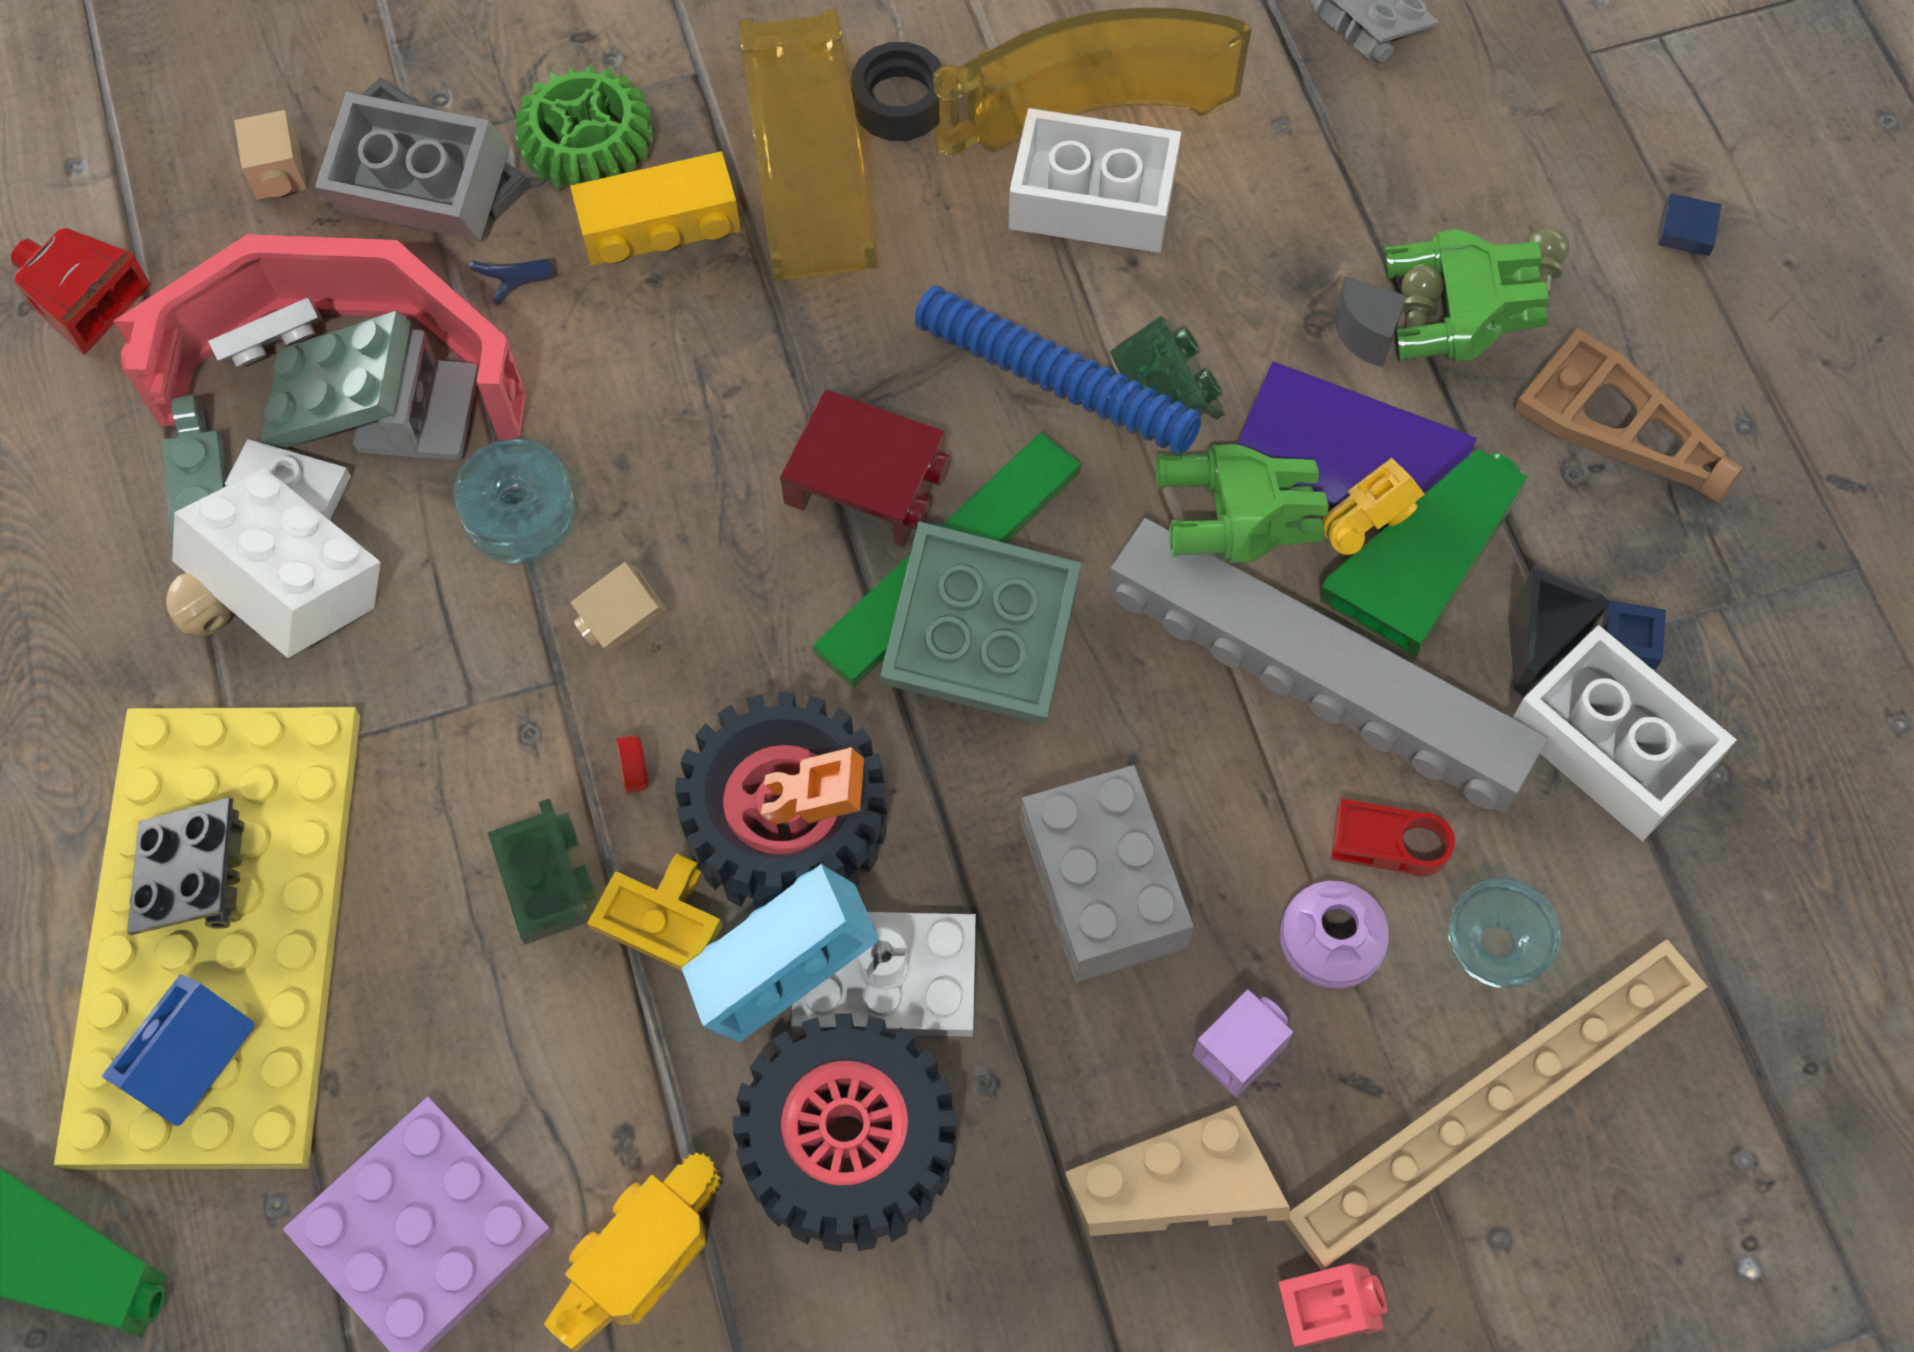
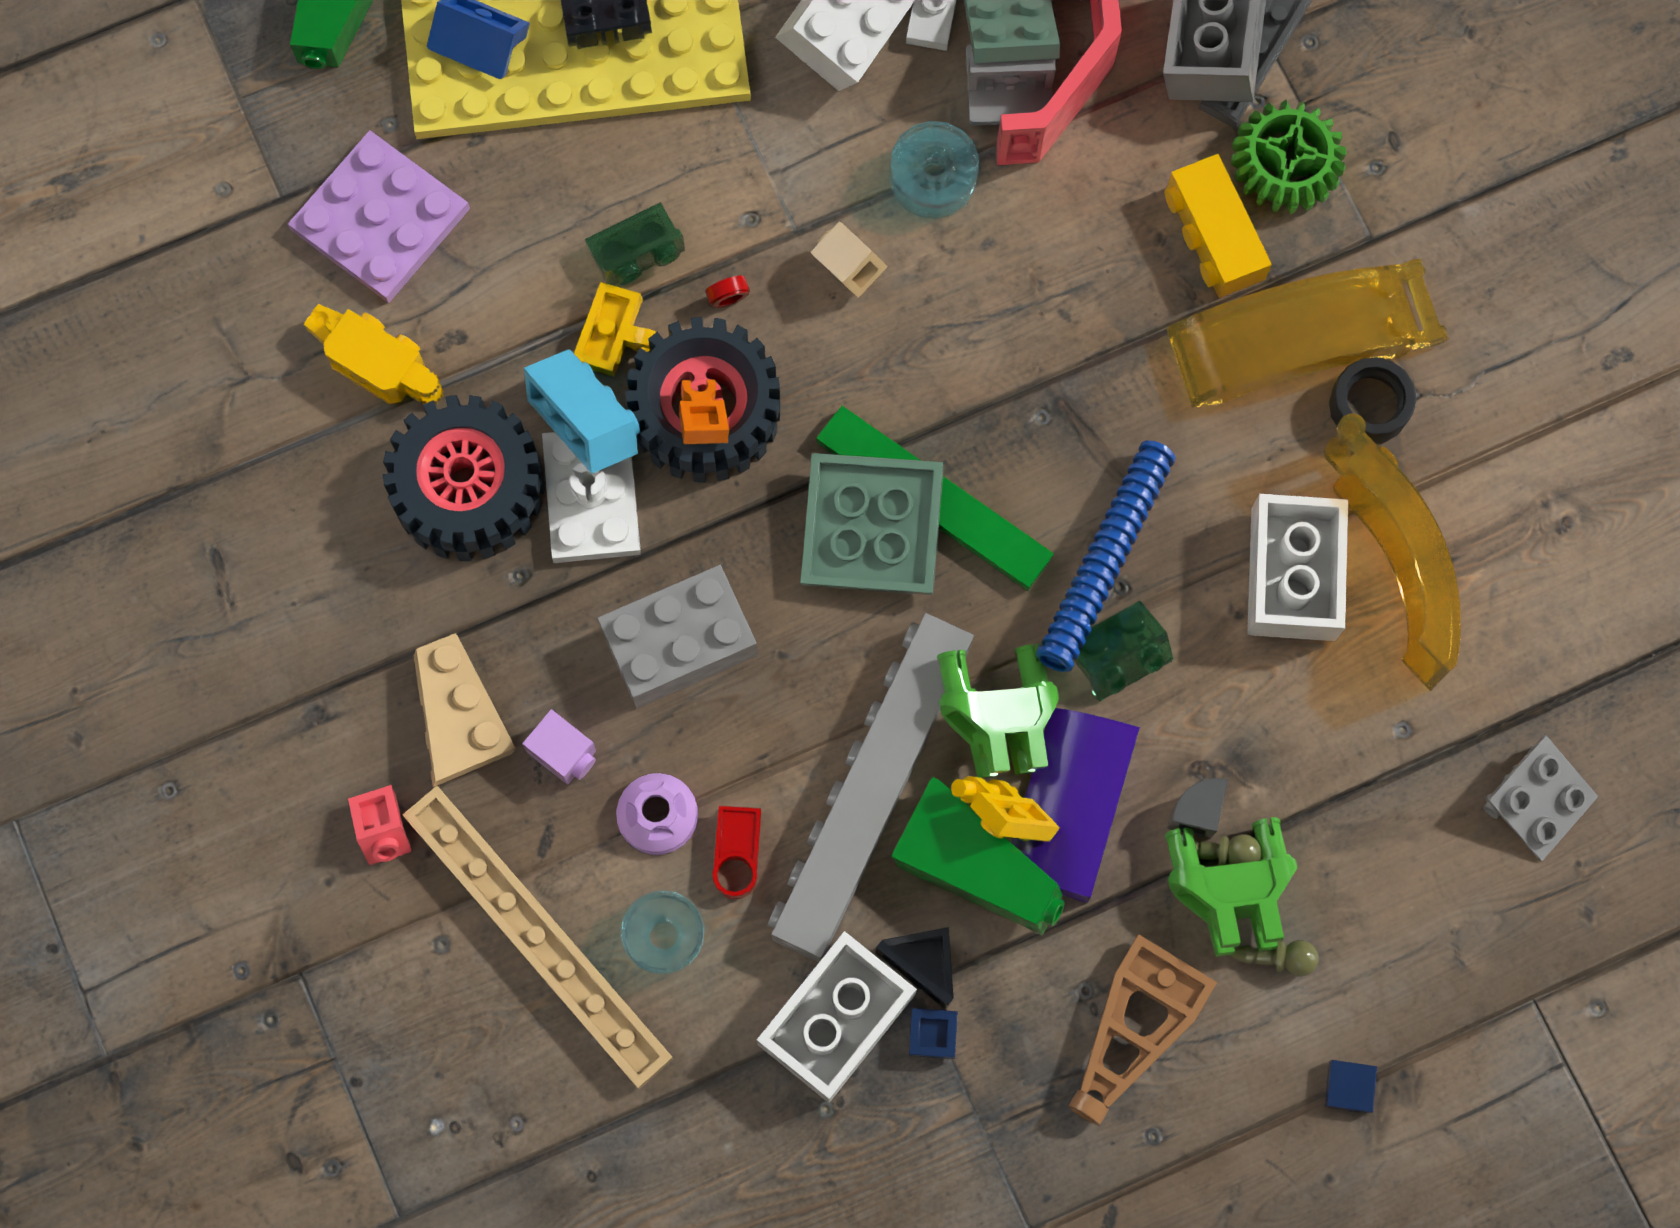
camera: 80 degrees right, 10 degrees up
(513, 274) = (1142, 129): dark blue bar -> none
(866, 462) = (999, 422): dark red panel -> none

